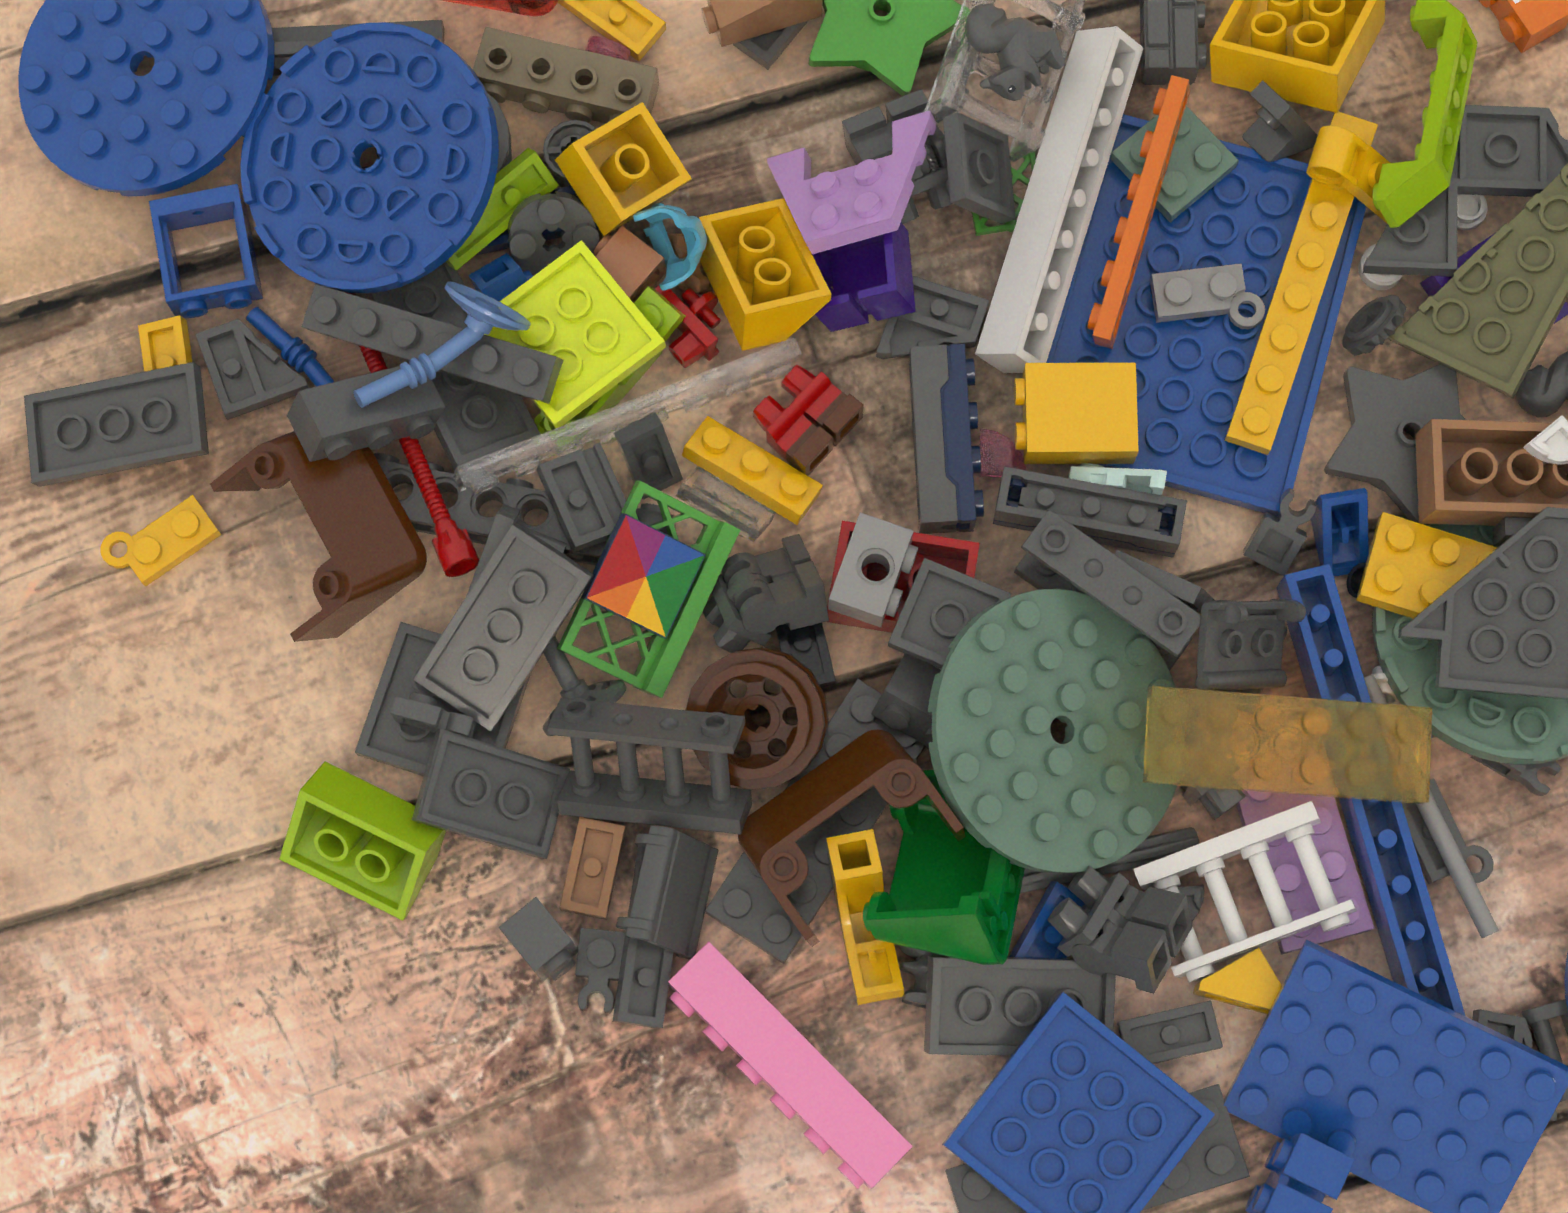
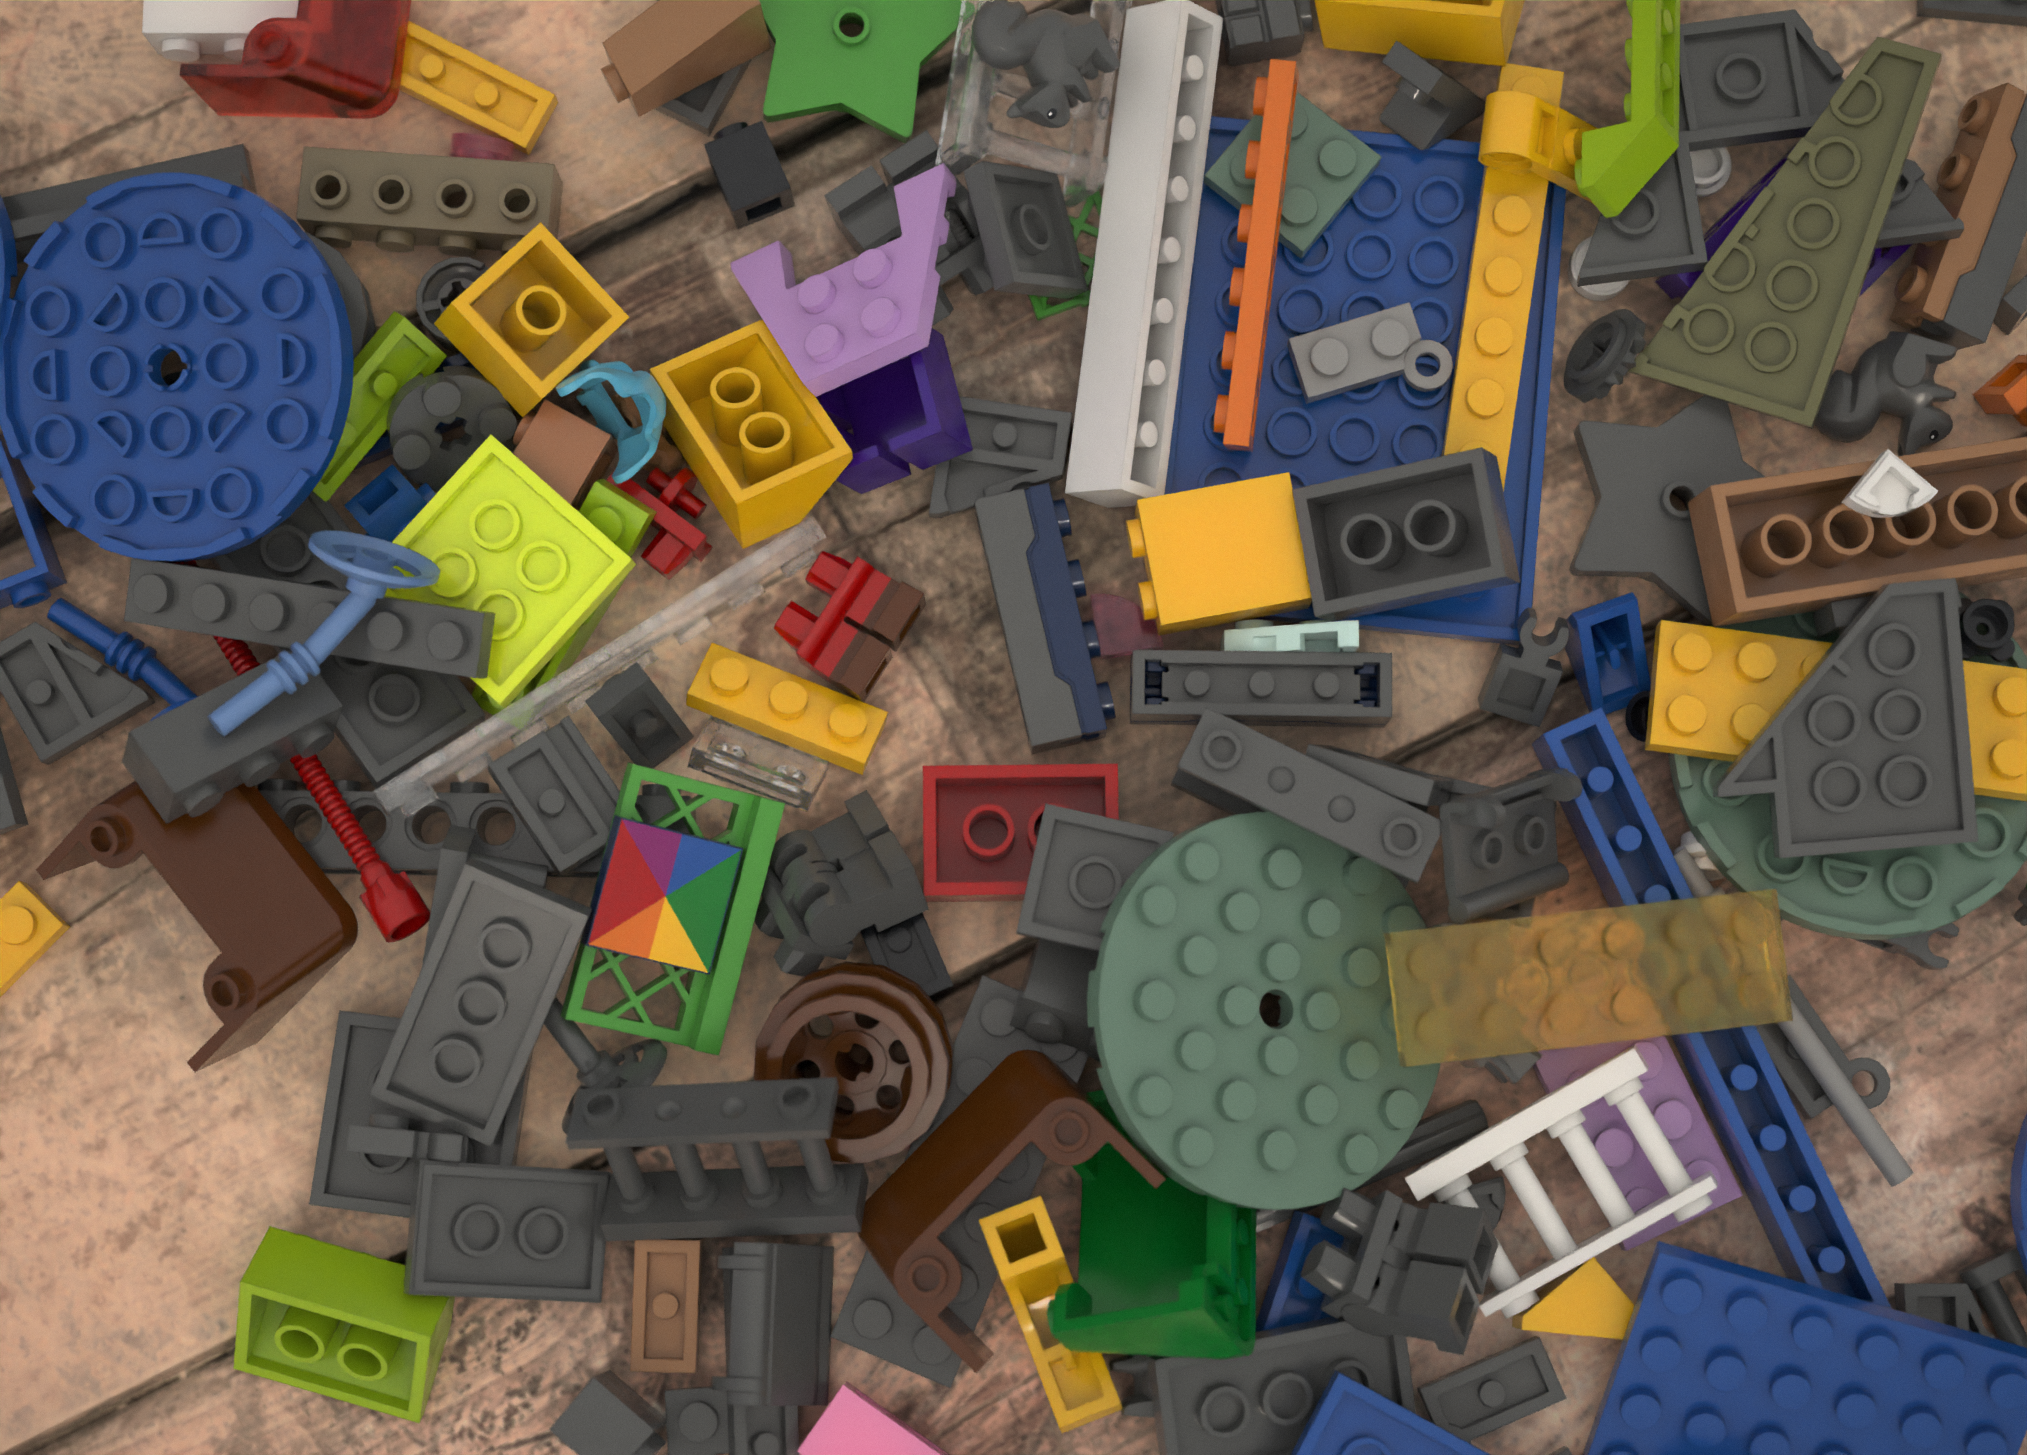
camera: 10 degrees left, 5 degrees up
(791, 99) = (749, 173): none -> black brick
(872, 542) = (971, 793): light grey brick -> none
(1211, 418) = (1406, 535): none -> dark grey brick

